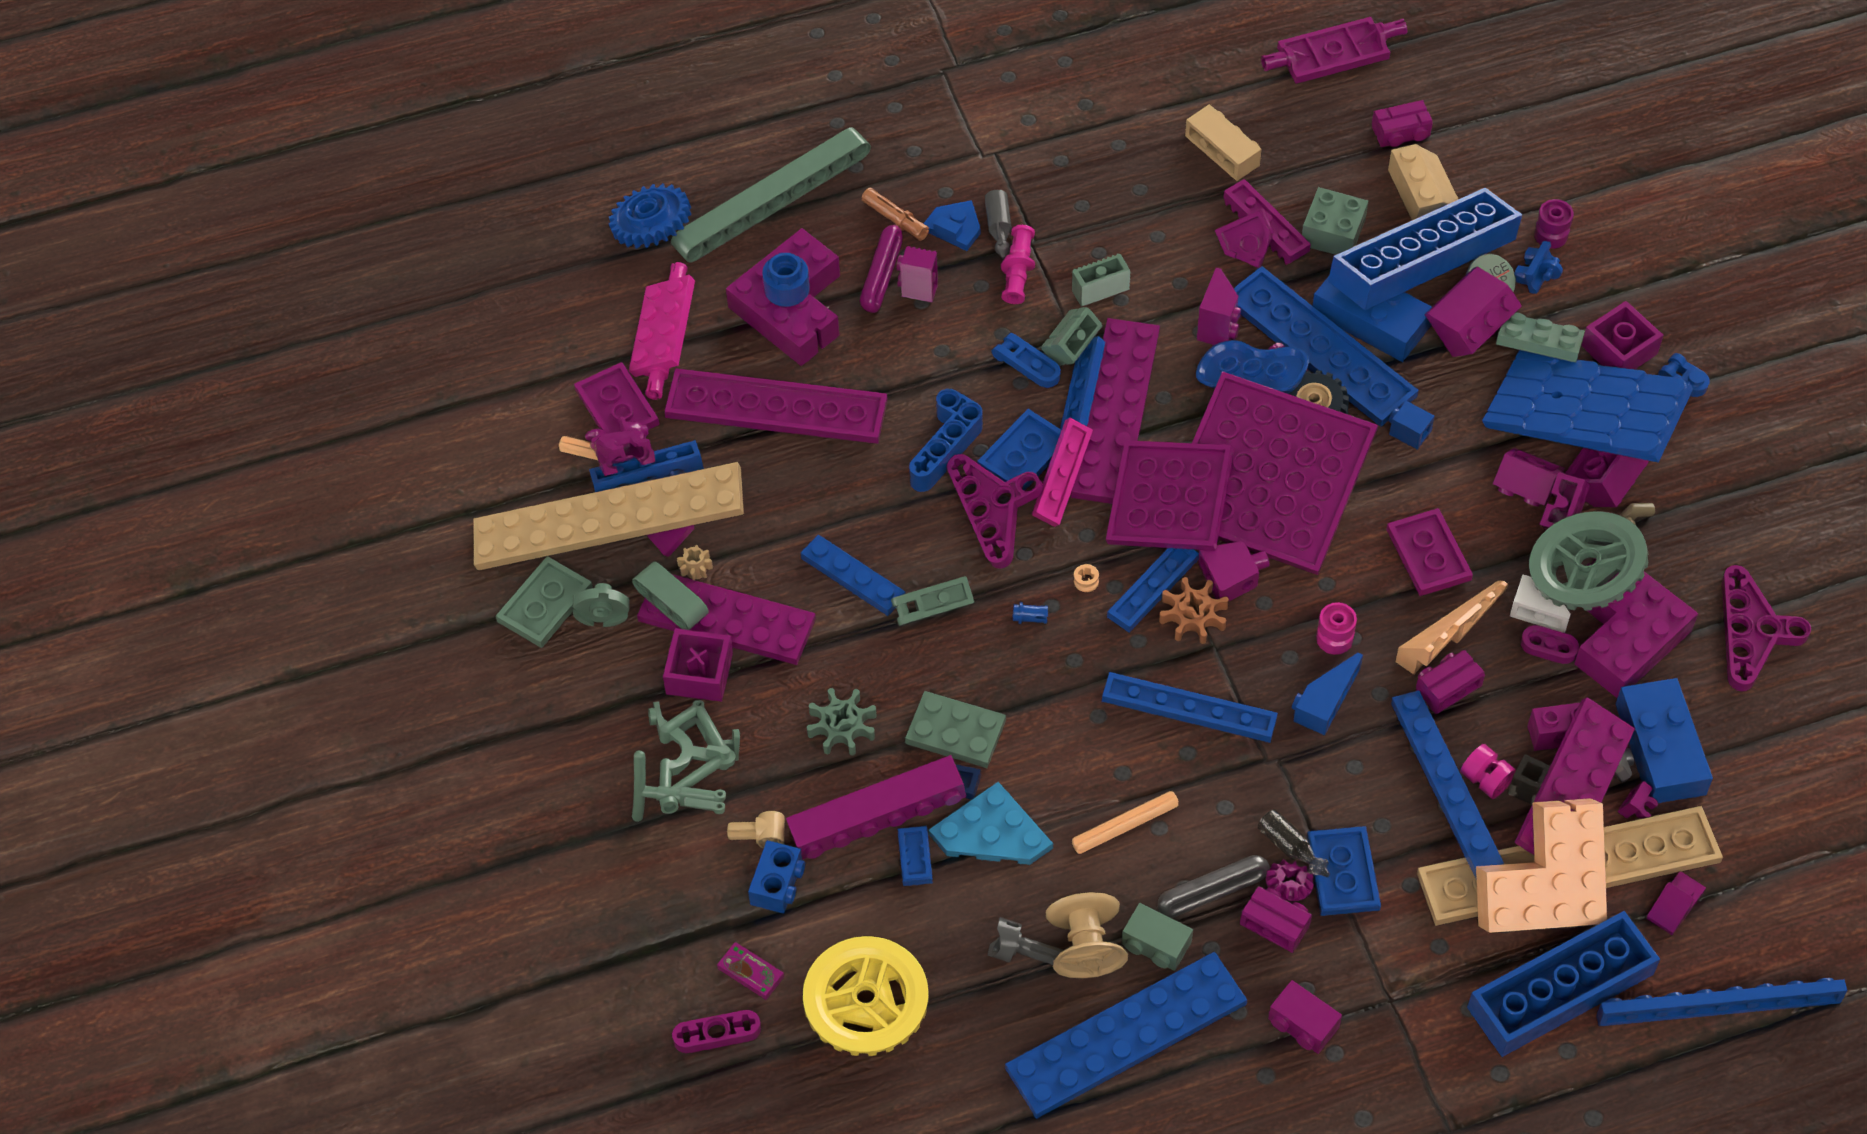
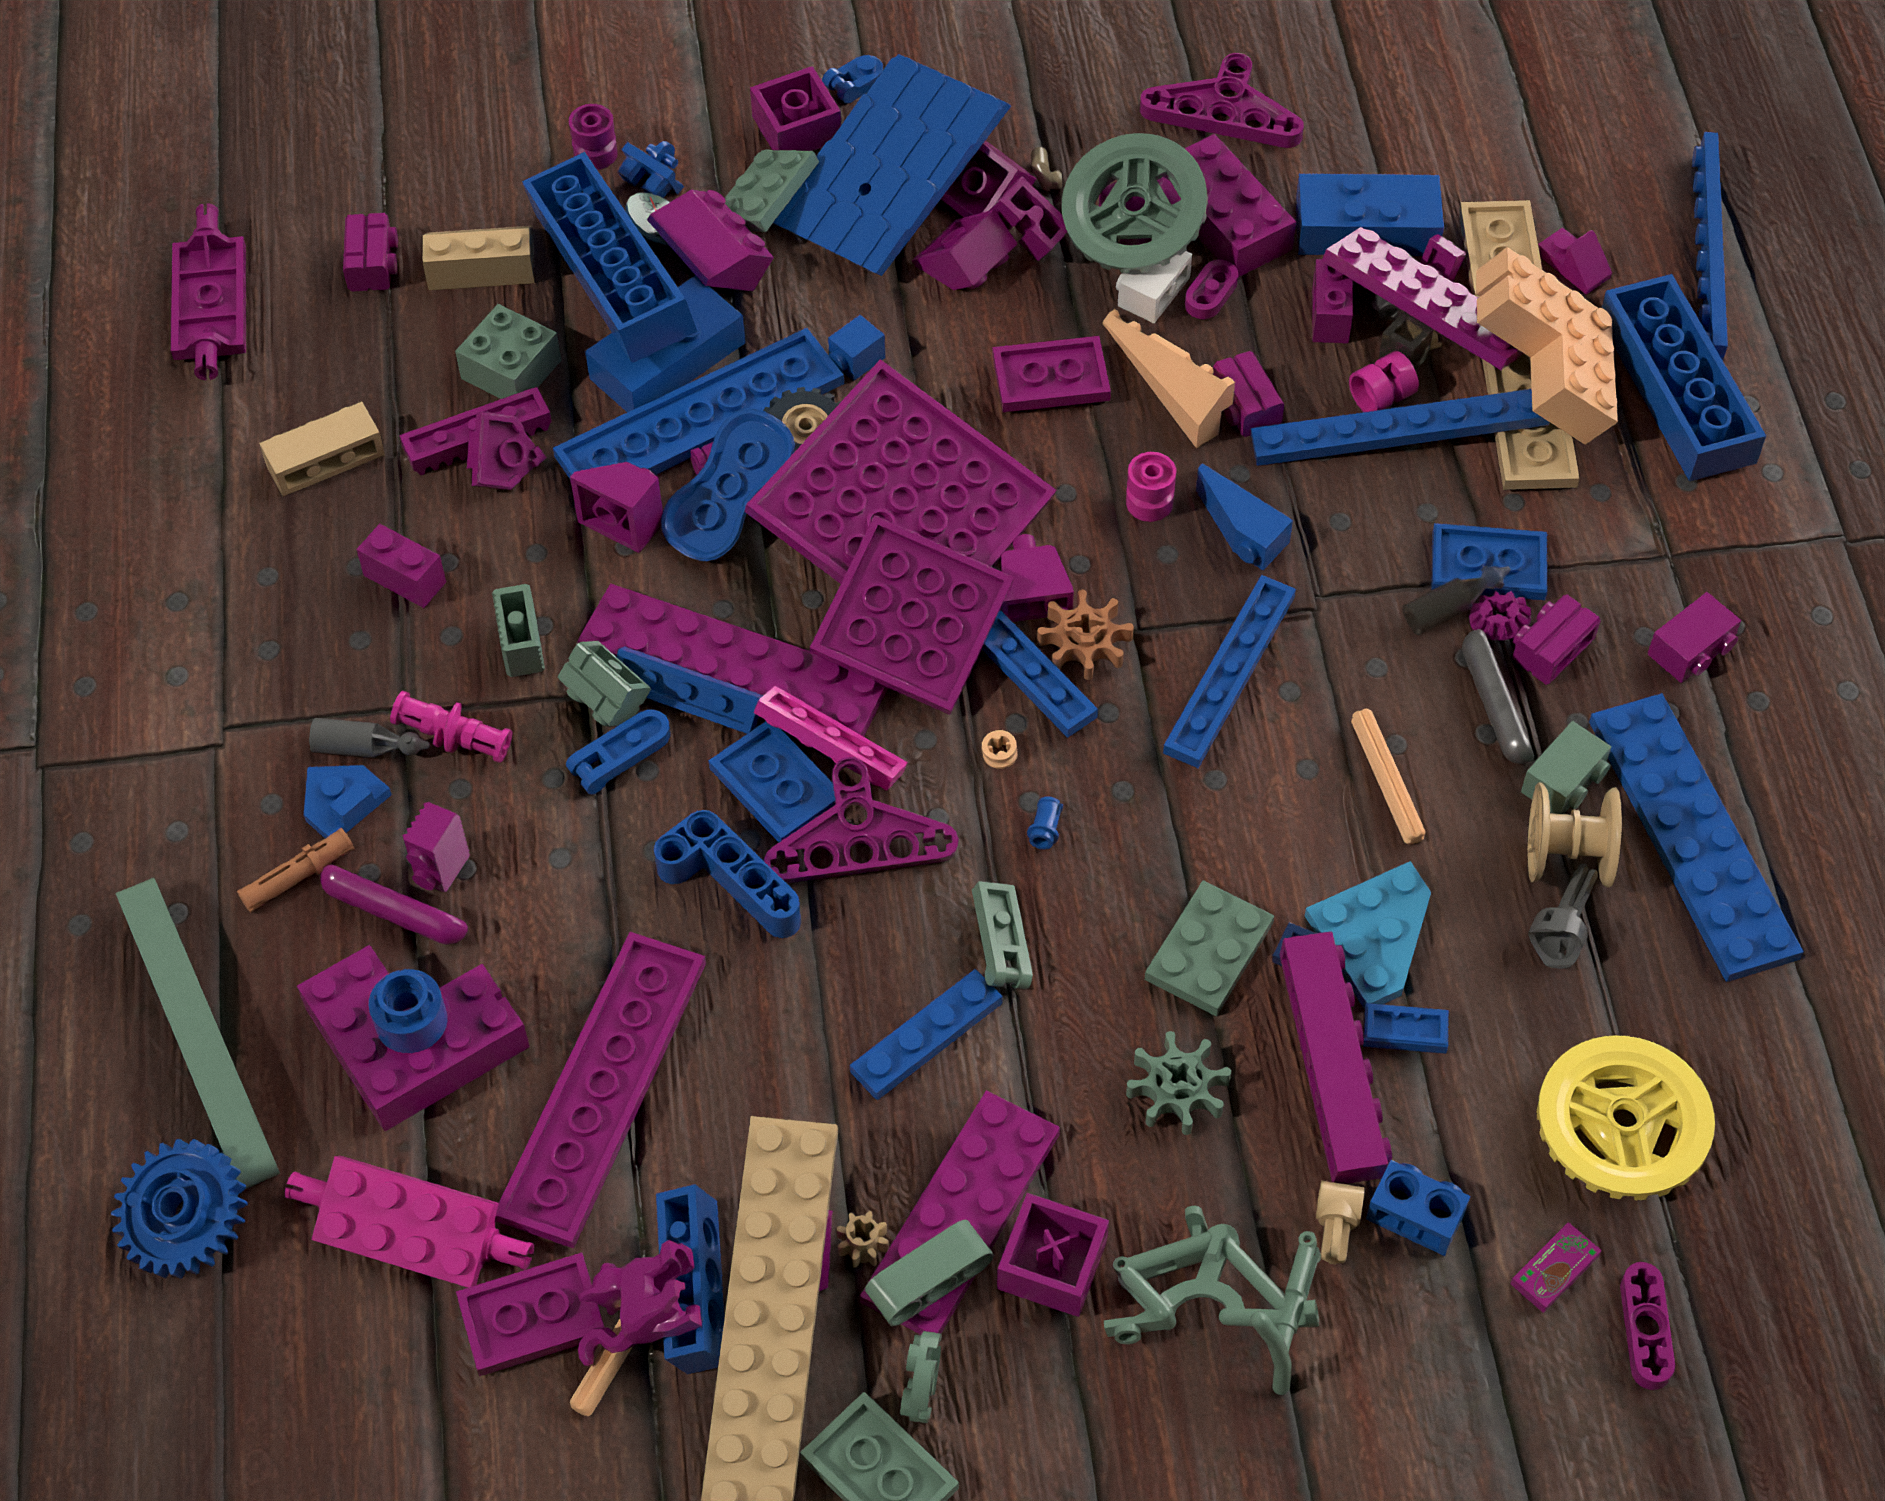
camera: 80 degrees left, 0 degrees up
(1138, 207) = (401, 565): none -> magenta brick

